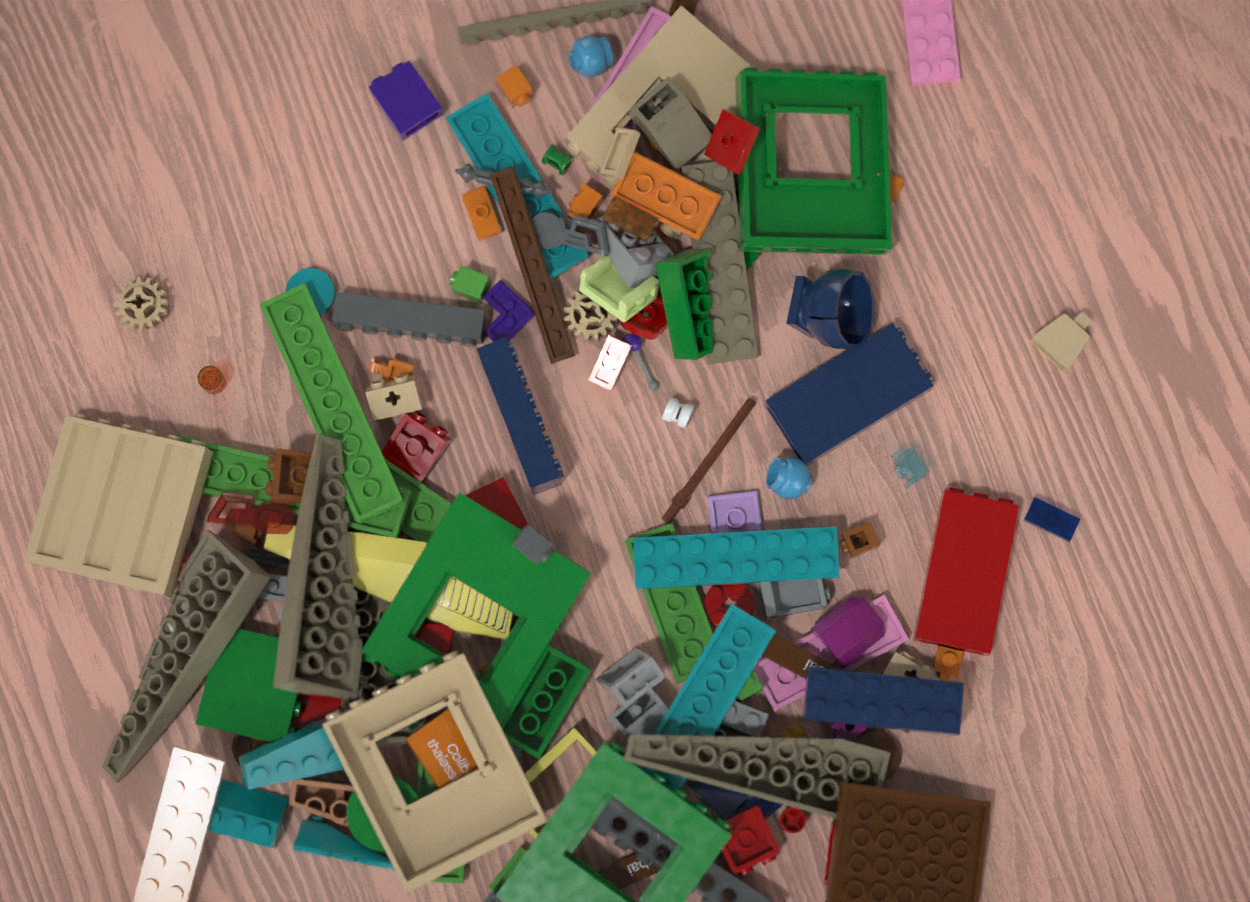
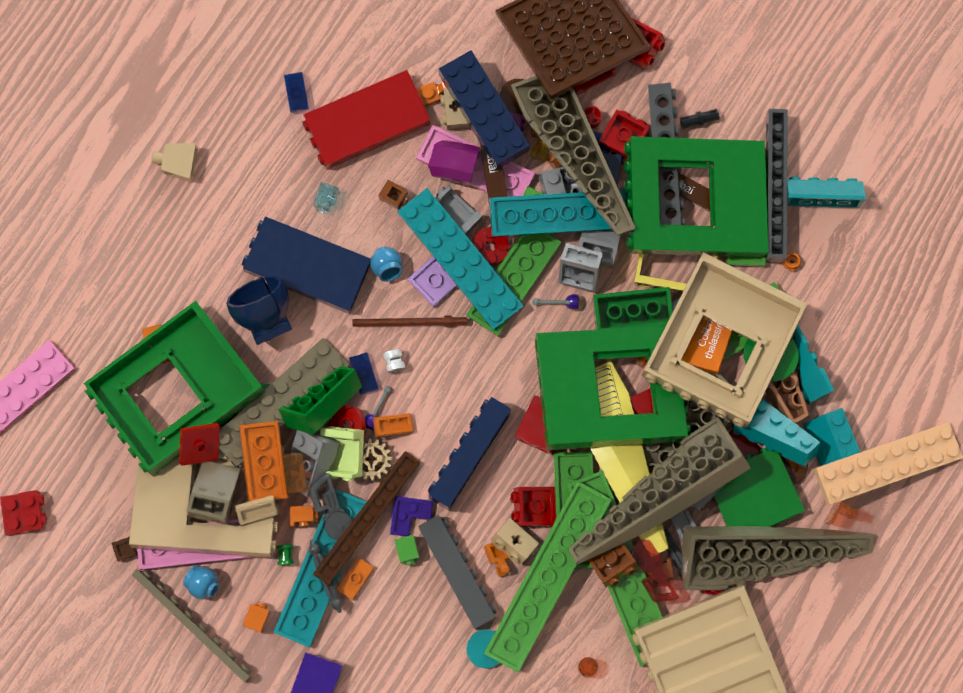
camera: 130 degrees left, 0 degrees up
(160, 767) = (842, 509): none -> clear orange panel
(533, 544) = (547, 376): dark grey brick -> none
(604, 646) = (571, 301): none -> hinge
(689, 373) = (365, 372): none -> clear blue plate

